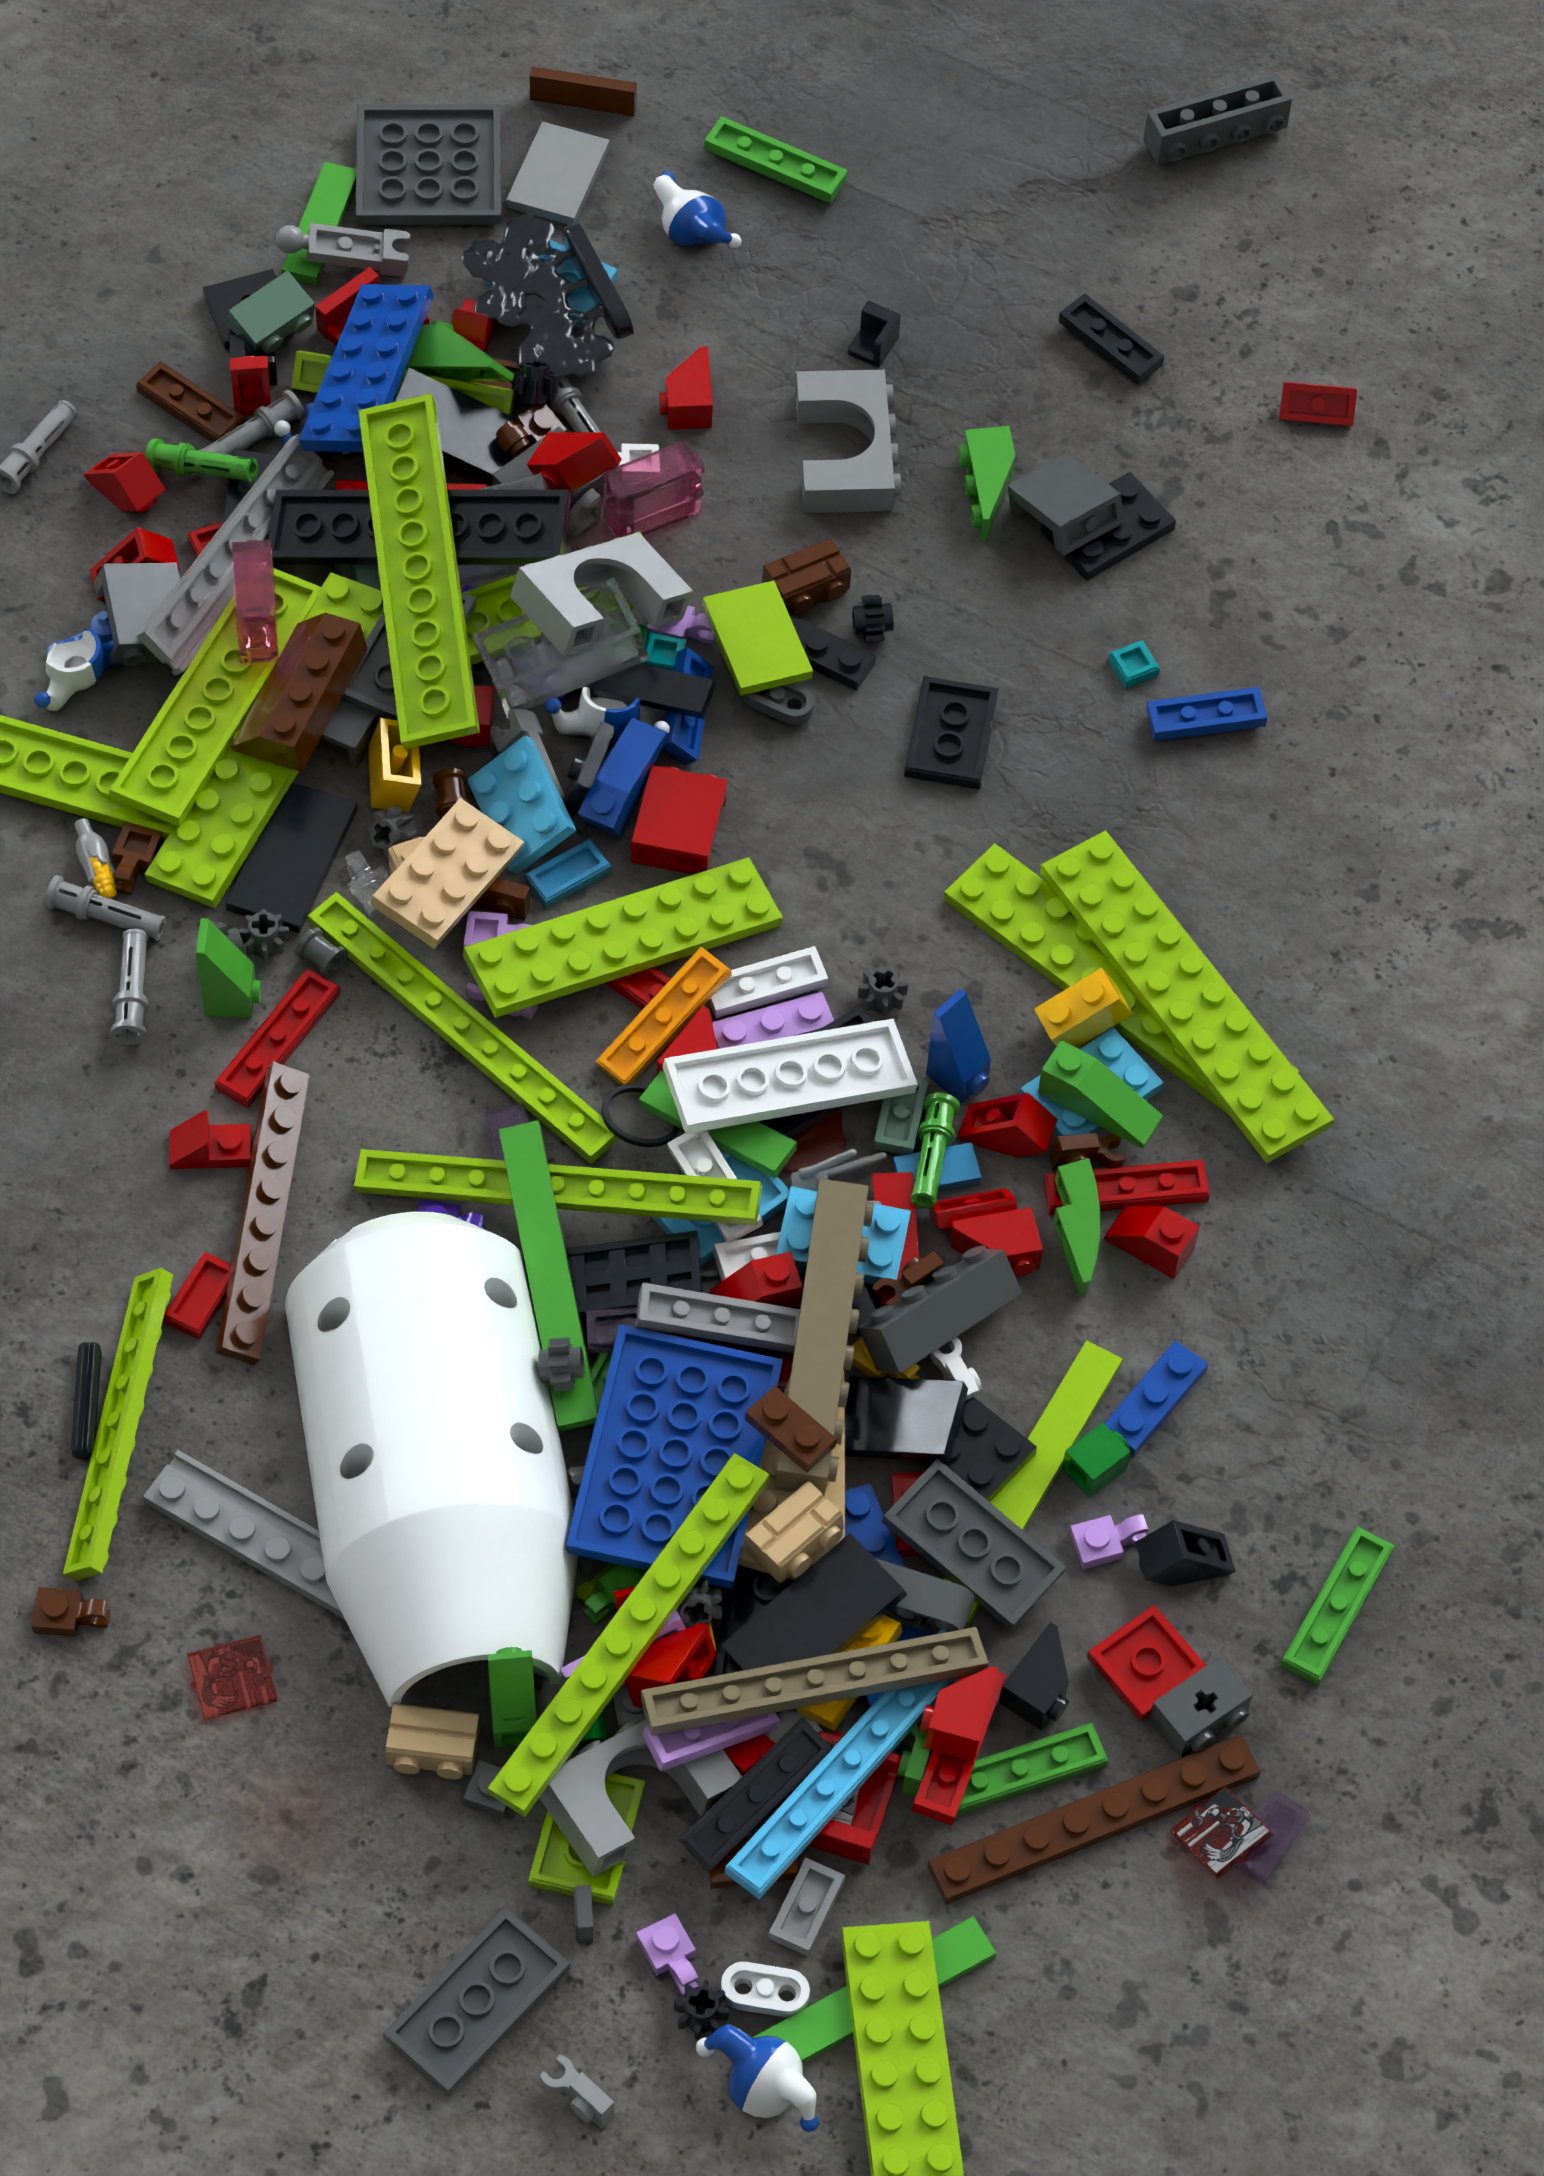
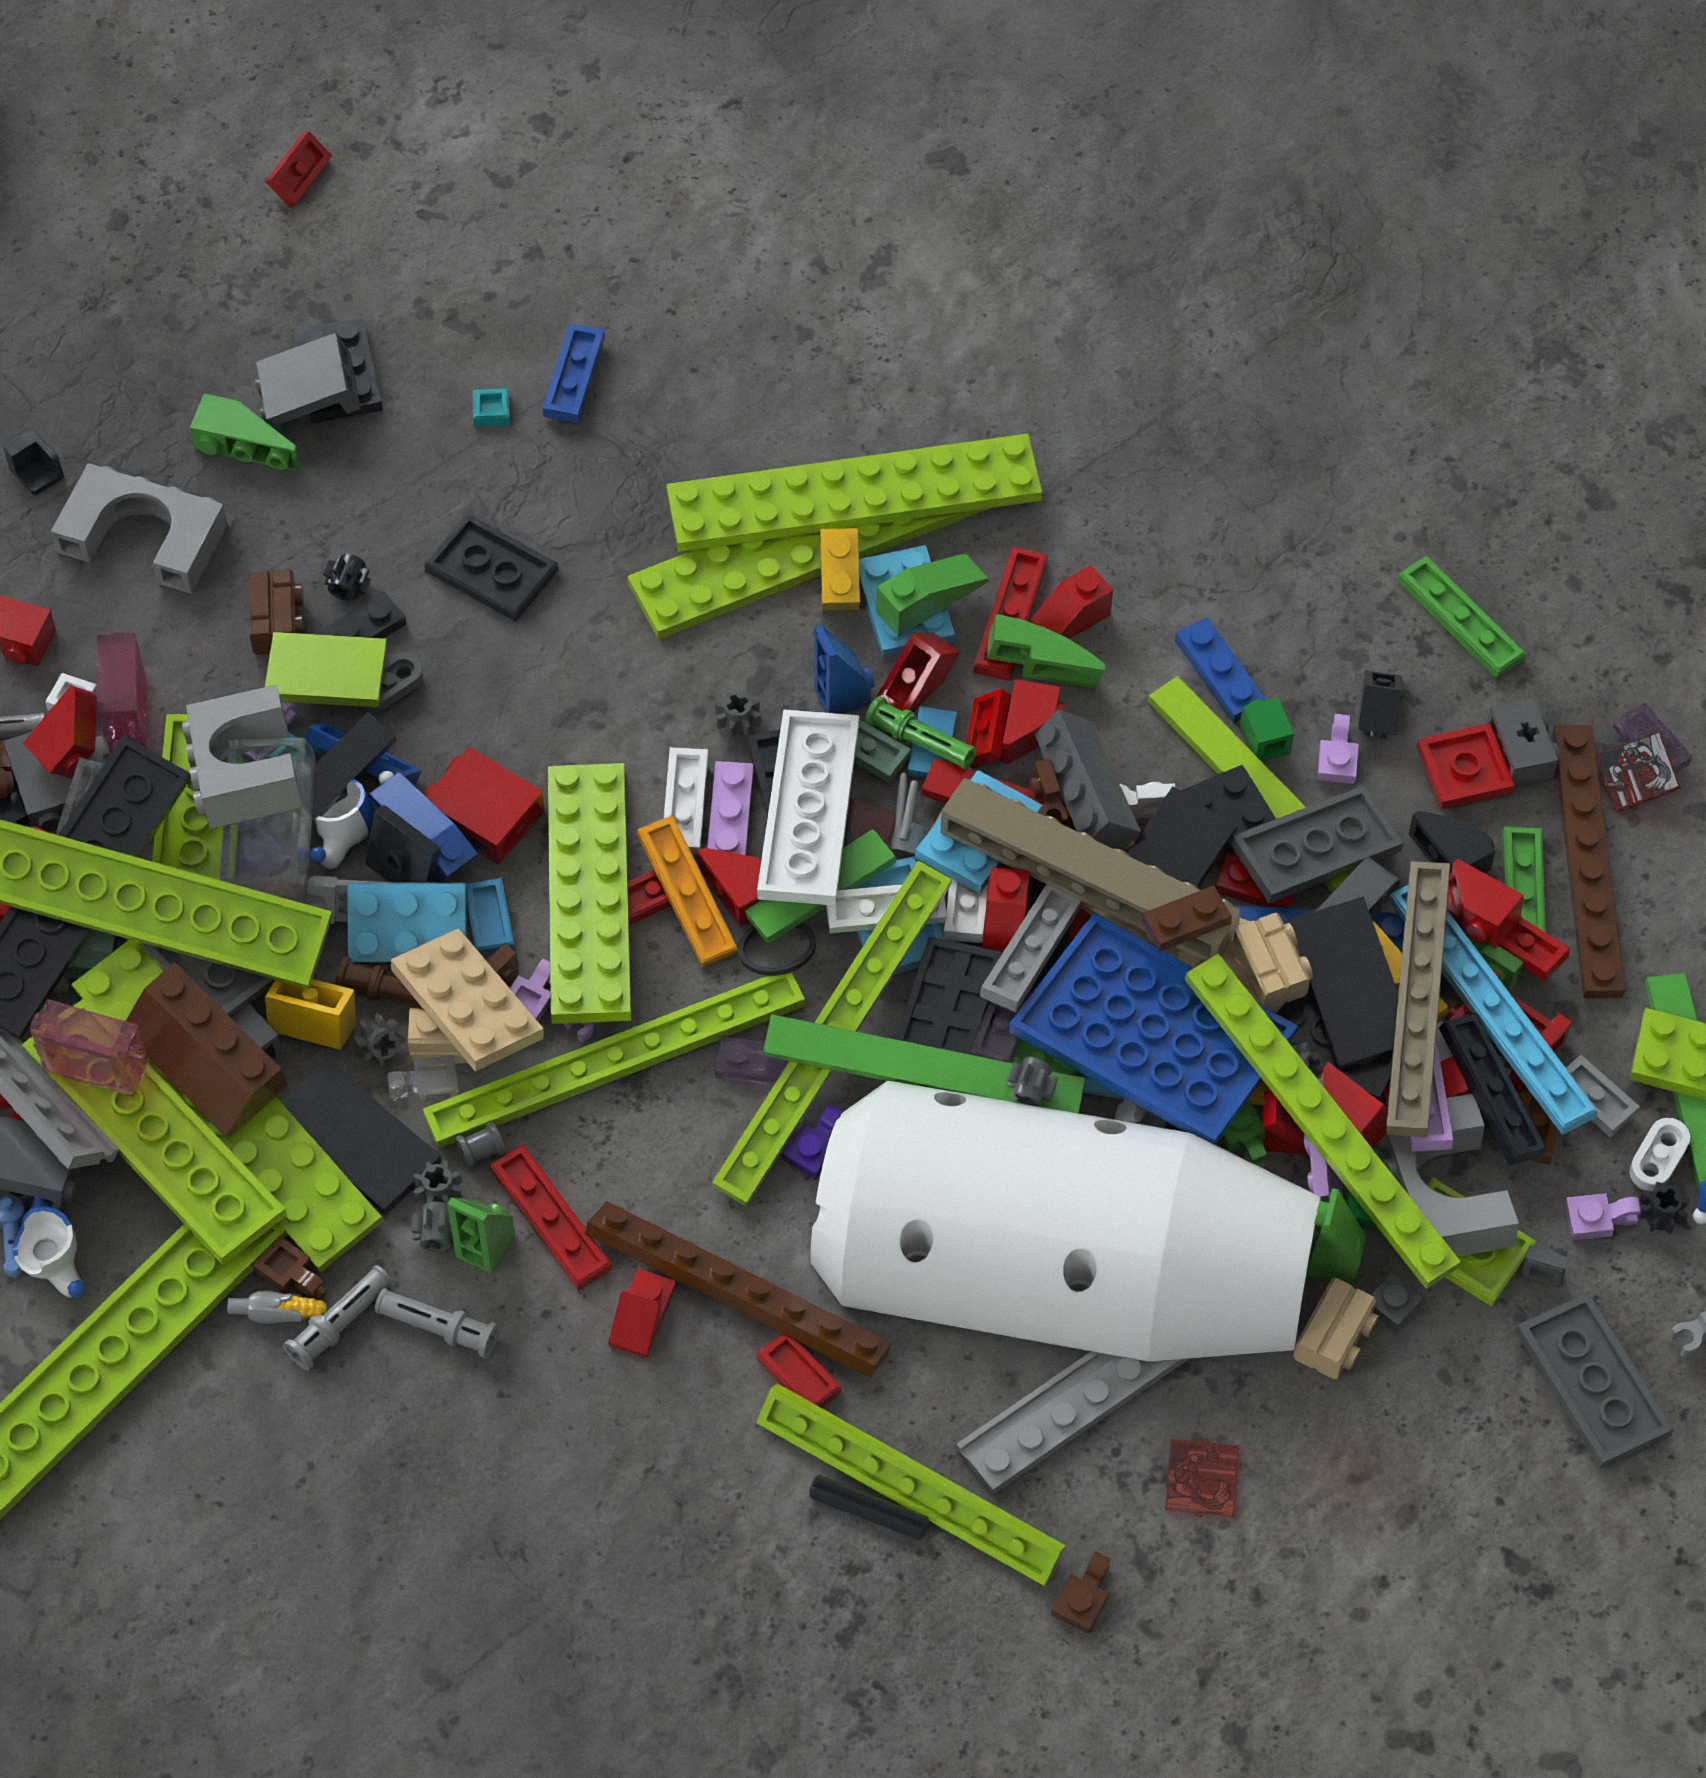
camera: 65 degrees left, 0 degrees up
(1082, 1146) = (969, 628): reddish brown plate -> none
(1111, 339) = (141, 289): black plate -> none

